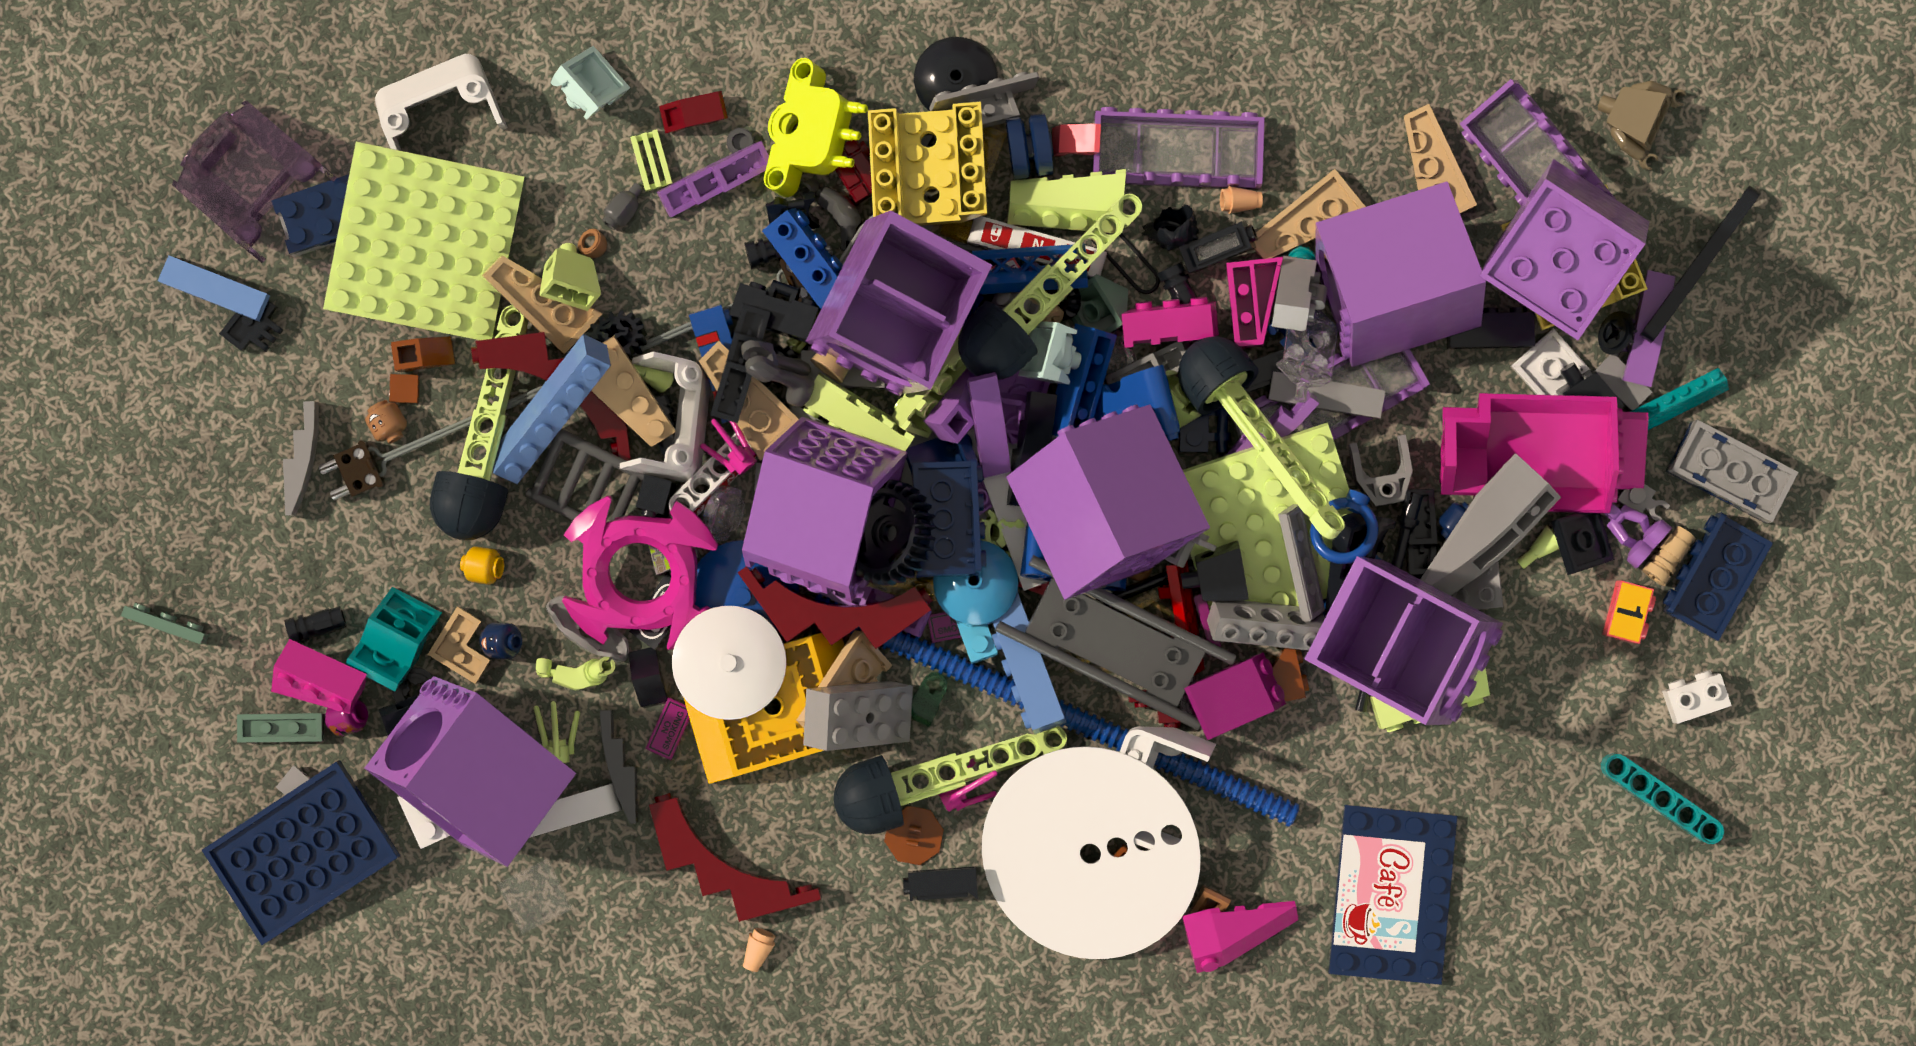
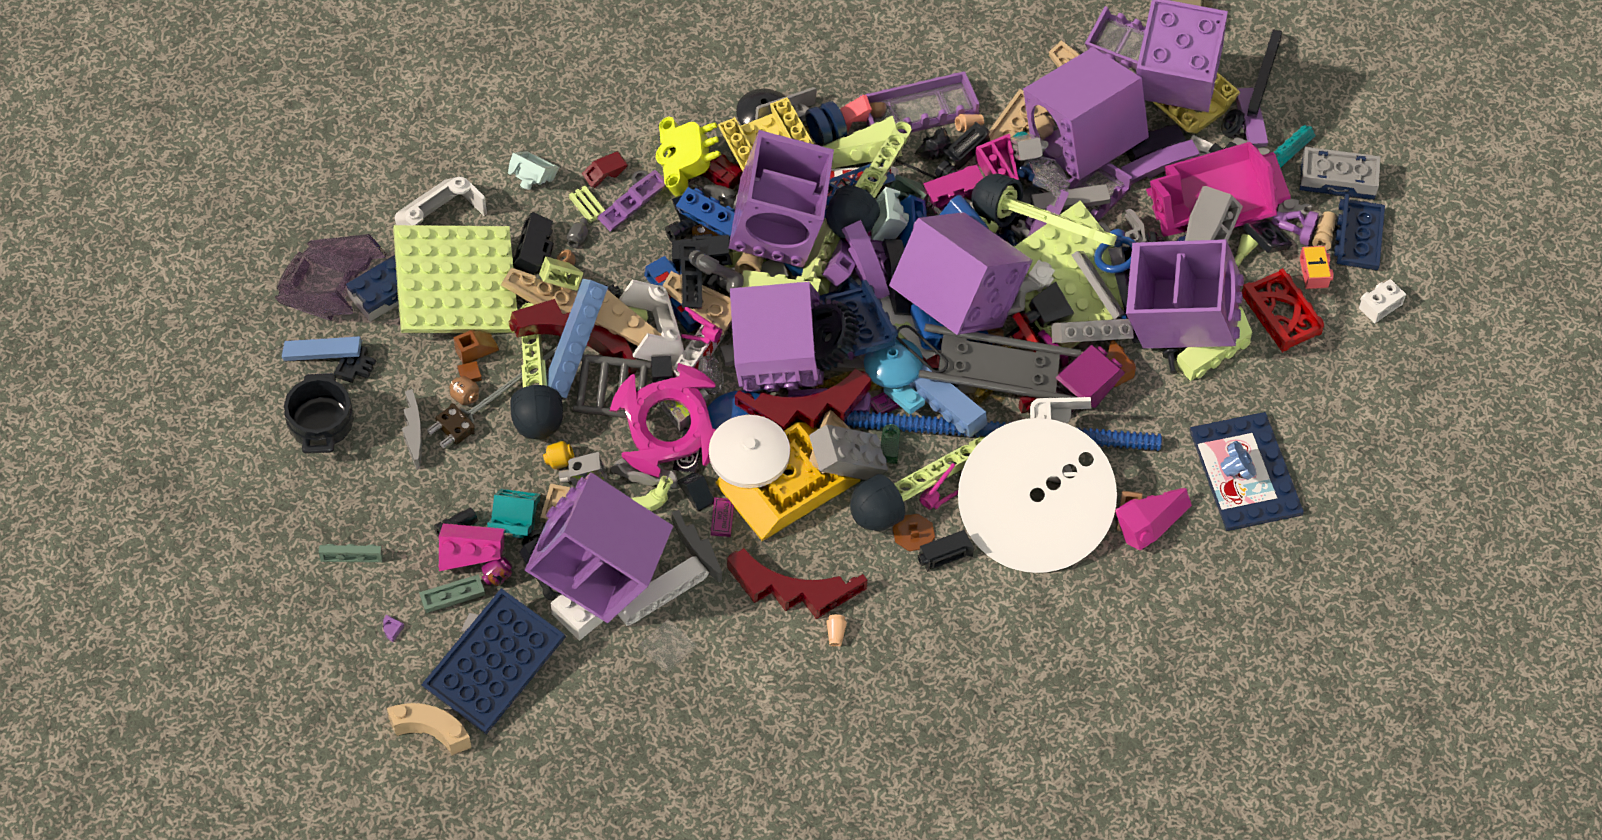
camera: 20 degrees left, 30 degrees down
(176, 403) = (318, 413): none -> black piece
(190, 748) = (392, 627): none -> medium lavender tile
(199, 909) = (429, 720): none -> tan brick
(512, 611) = (582, 467): none -> light grey torso
(549, 209) = (533, 238): none -> black piece
(1026, 581) = (916, 355): none -> black piece
(1115, 136) = (878, 109): none -> medium nougat piece
(1224, 528) = (1042, 273): none -> white brick
(1382, 894) = (1238, 462): none -> medium blue plant
(1486, 363) = (1155, 162): none -> medium lavender slope
(1530, 698) = (1295, 297): none -> red fence
(1675, 802) = (1399, 364): teal beam -> none

